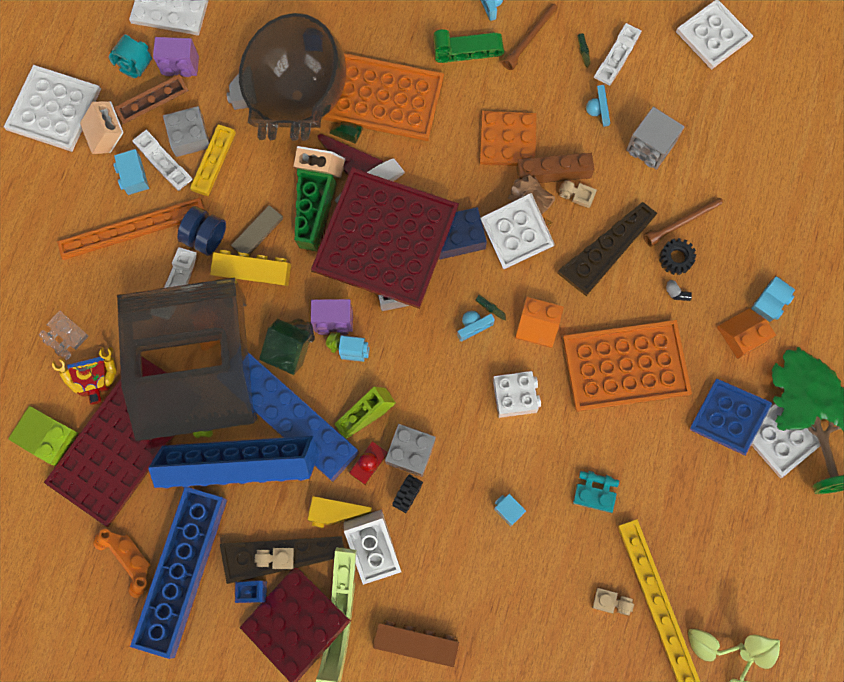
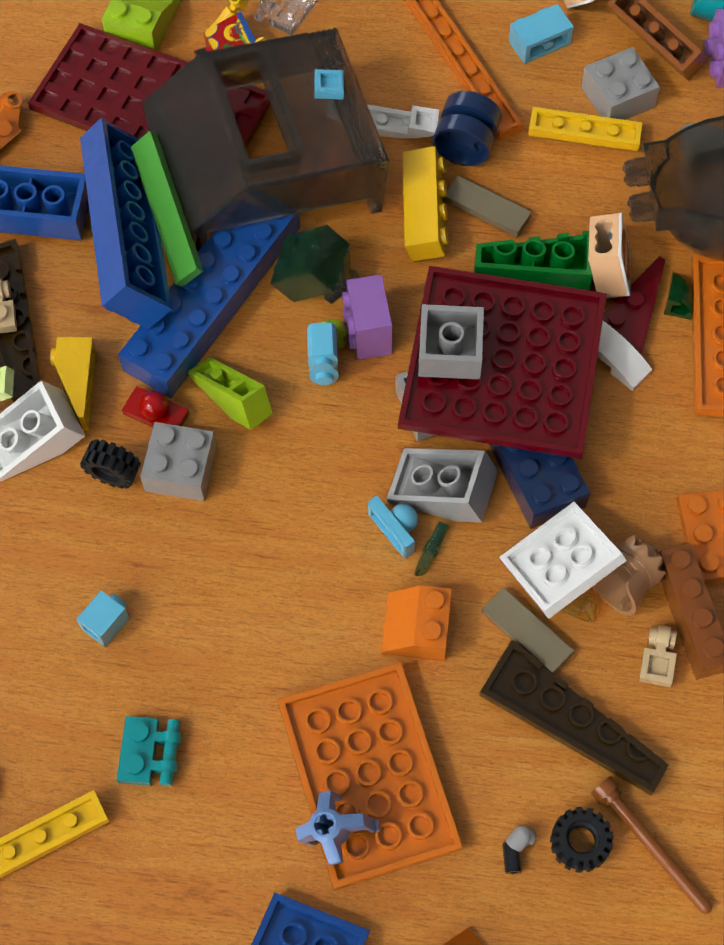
camera: 80 degrees right, 10 degrees down
(162, 160) = (569, 68): white slope -> none
(167, 305) = (329, 84): none -> medium azure tile
(228, 432) = (166, 209): none -> bright green tile
(376, 262) = (451, 341): none -> light grey brick
(451, 292) = (444, 482): none -> light grey slope
(516, 394) = (291, 602): white brick -> none
(551, 262) = (527, 630): none -> dark tan tile
(663, 386) = (333, 827): none -> medium blue piece

